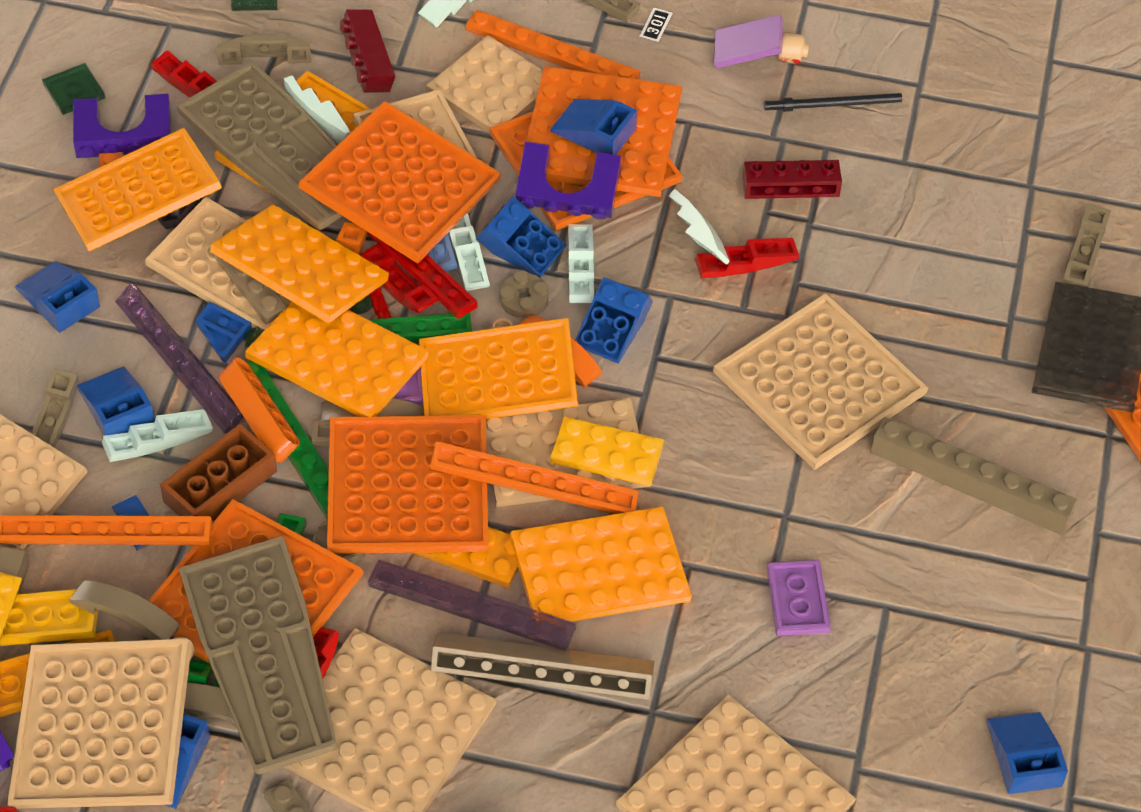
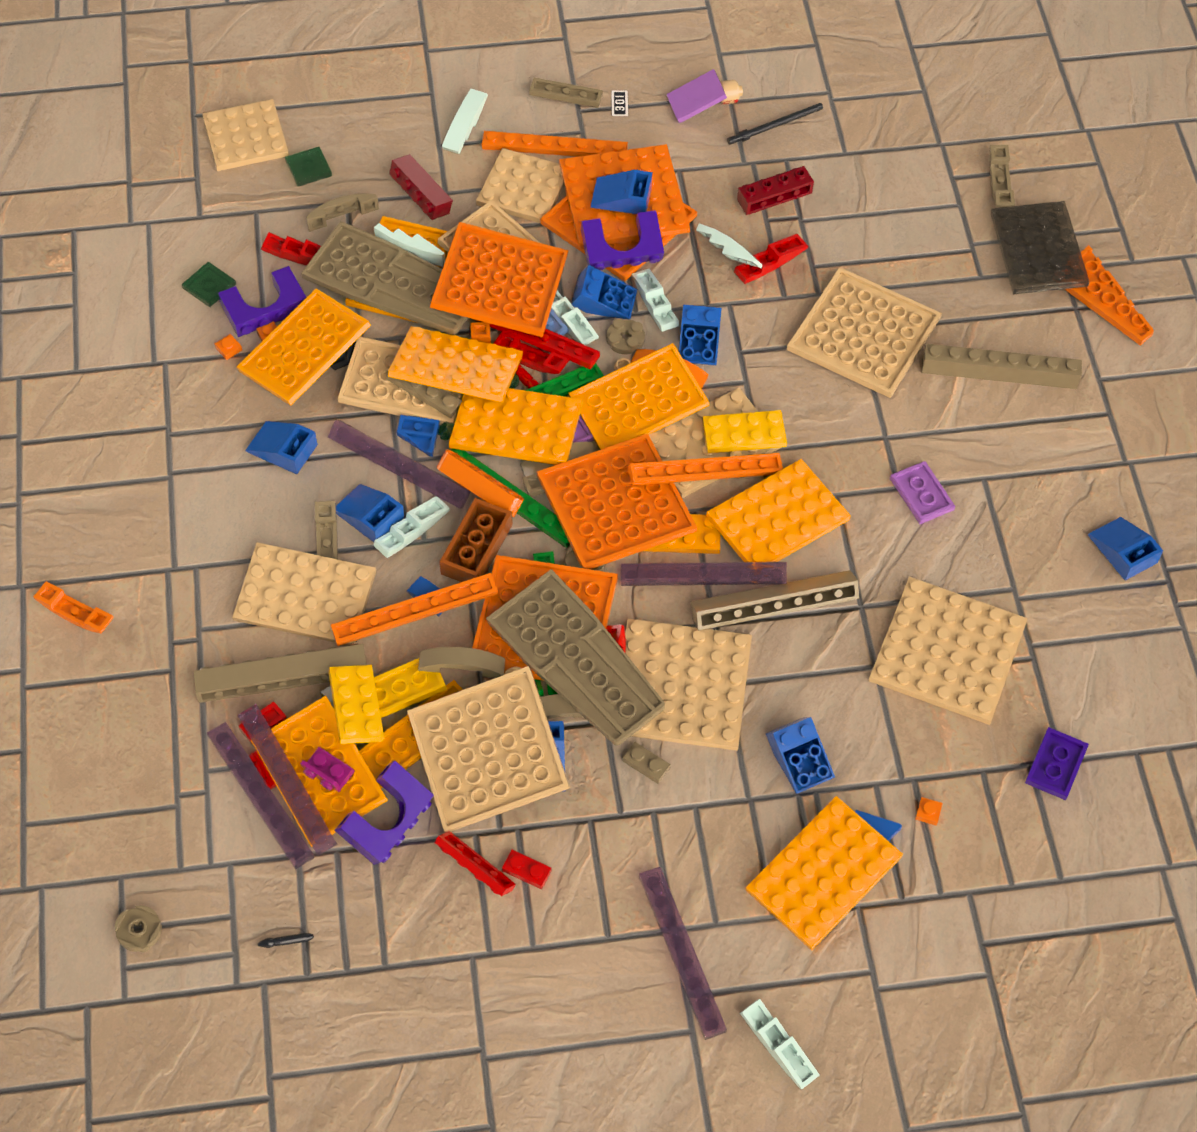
camera: 20 degrees left, 5 degrees up
(58, 165) = (228, 346): none -> orange plate

